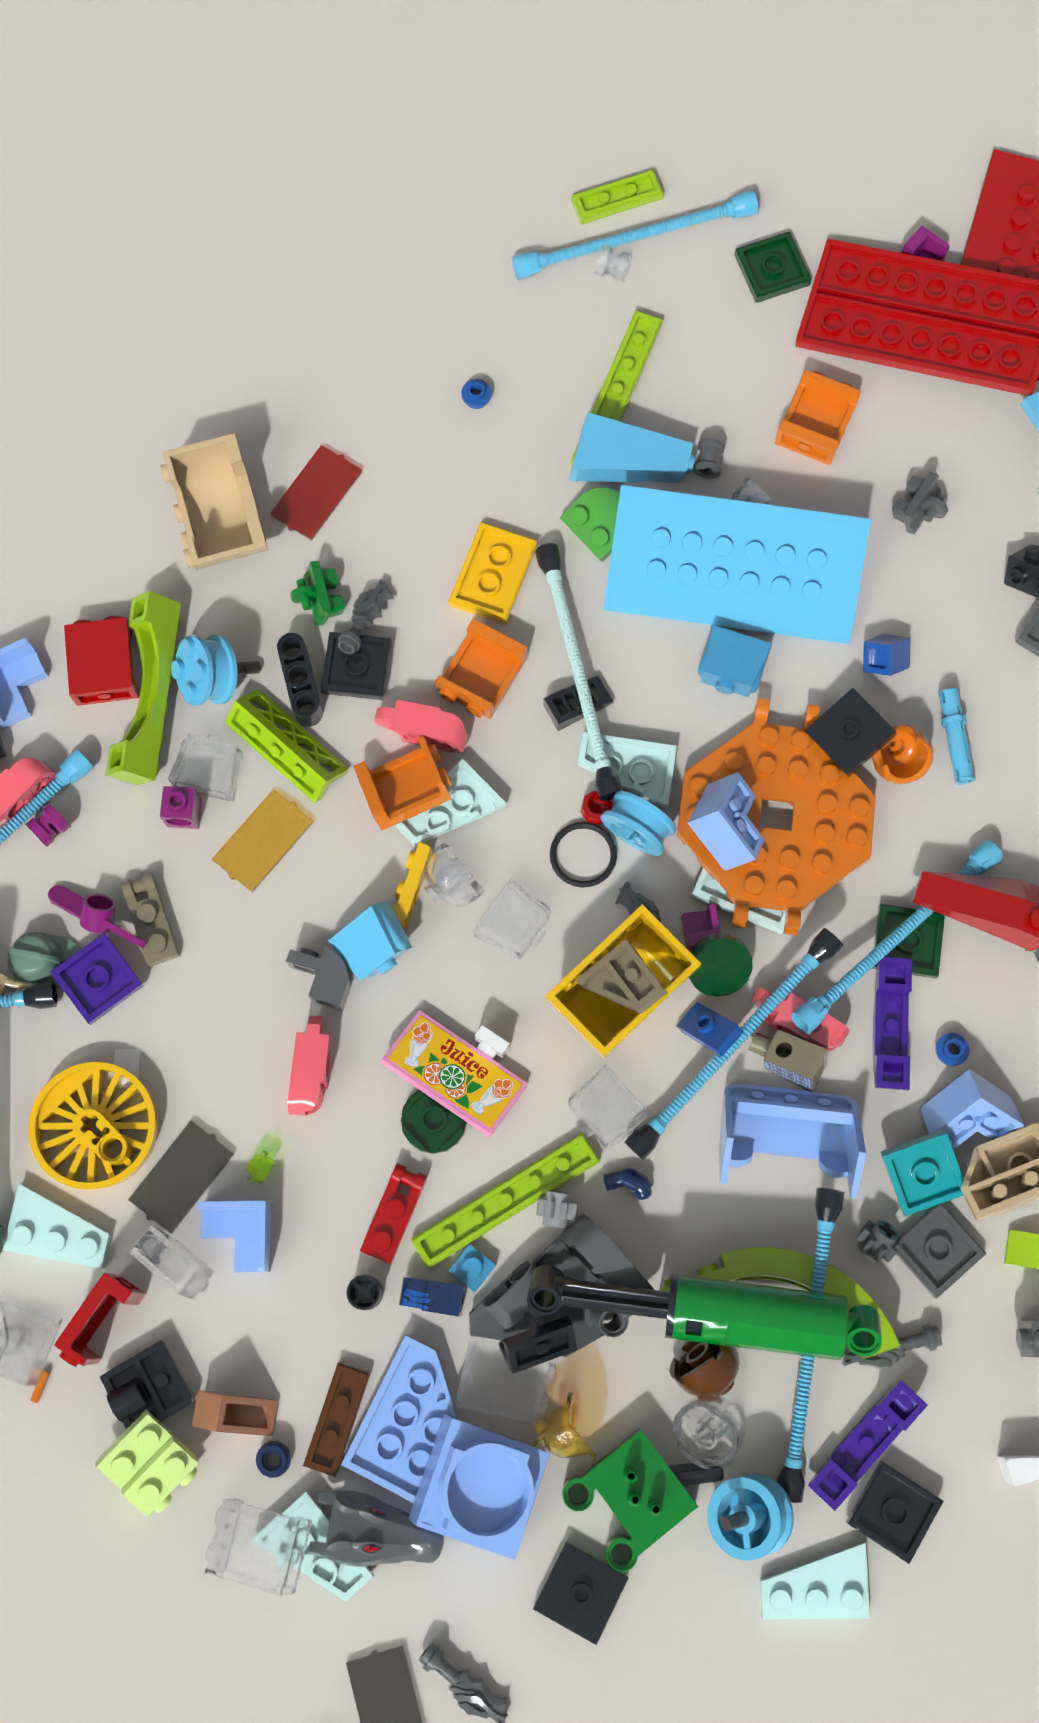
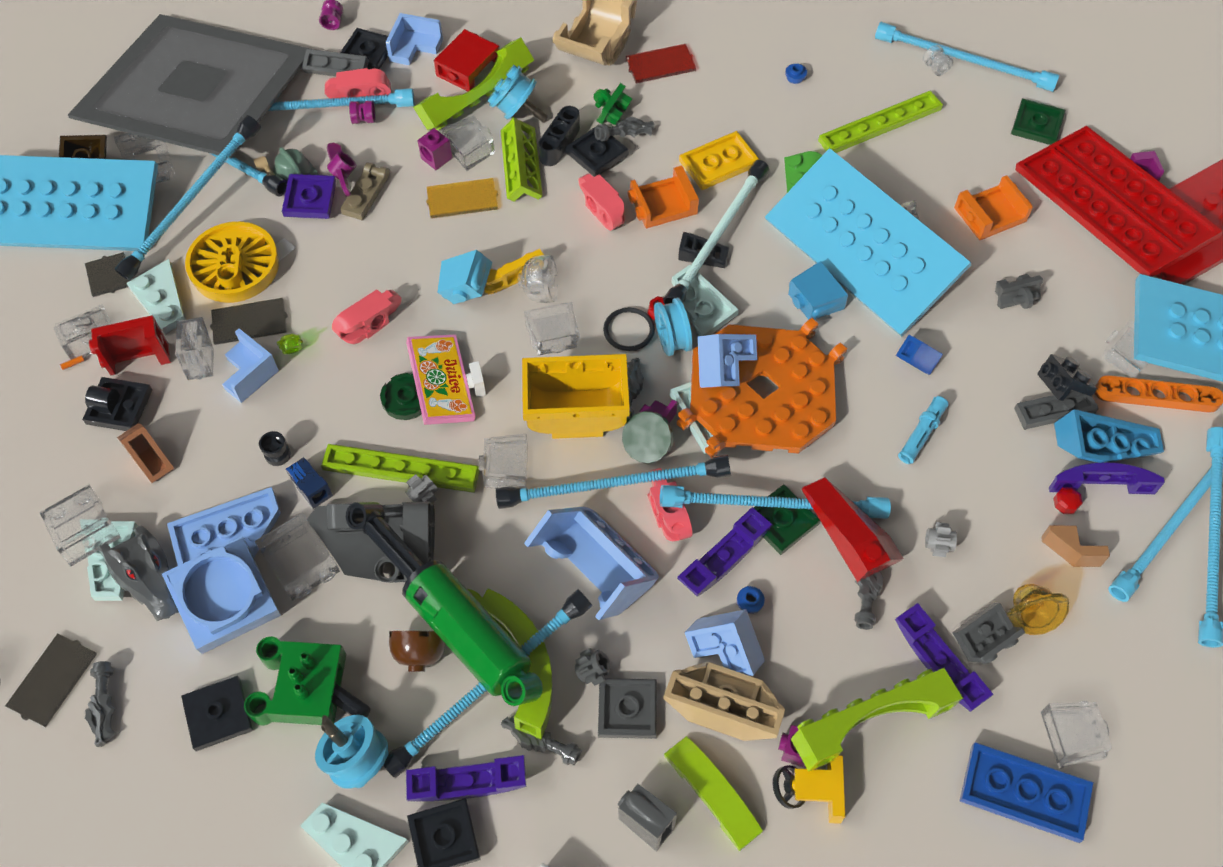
camera: 40 degrees right, 15 degrees down
(148, 1463) = (76, 437): yellowish green plate -> none
(262, 1459) = (134, 489): dark blue plate -> none
(331, 974) = (424, 281): dark grey brick -> none
(336, 1420) = (200, 498): reddish brown tile -> none
(393, 1215) = (334, 425): red plate -> none
(404, 785) = (558, 219): orange panel -> none
(470, 801) = (577, 248): light aqua wing -> none
(472, 1268) = (345, 487): dark azure plate -> none
(538, 1343) = (333, 544): black panel -> none
(560, 1432) = (300, 606): clear yellow helmet -> none
(617, 197) = (973, 35): lime tile -> none
(624, 979) = (575, 380): dark tan wing -> none
(628, 453) = (856, 146): medium azure slope -> none
(631, 1179) = (480, 512): dark blue arm -> none
(709, 458) = (906, 183): dark grey bush -> none
(709, 1029) = (607, 465): blue plate -> none
(709, 1431) = (380, 680): clear cylinder -> none
(803, 1064) = (640, 513): dark tan torso -> none
(850, 732) = (851, 371): black plate -> none
(906, 757) = (874, 417): orange piece -> none
(923, 1172) = (659, 648): teal plate -> none

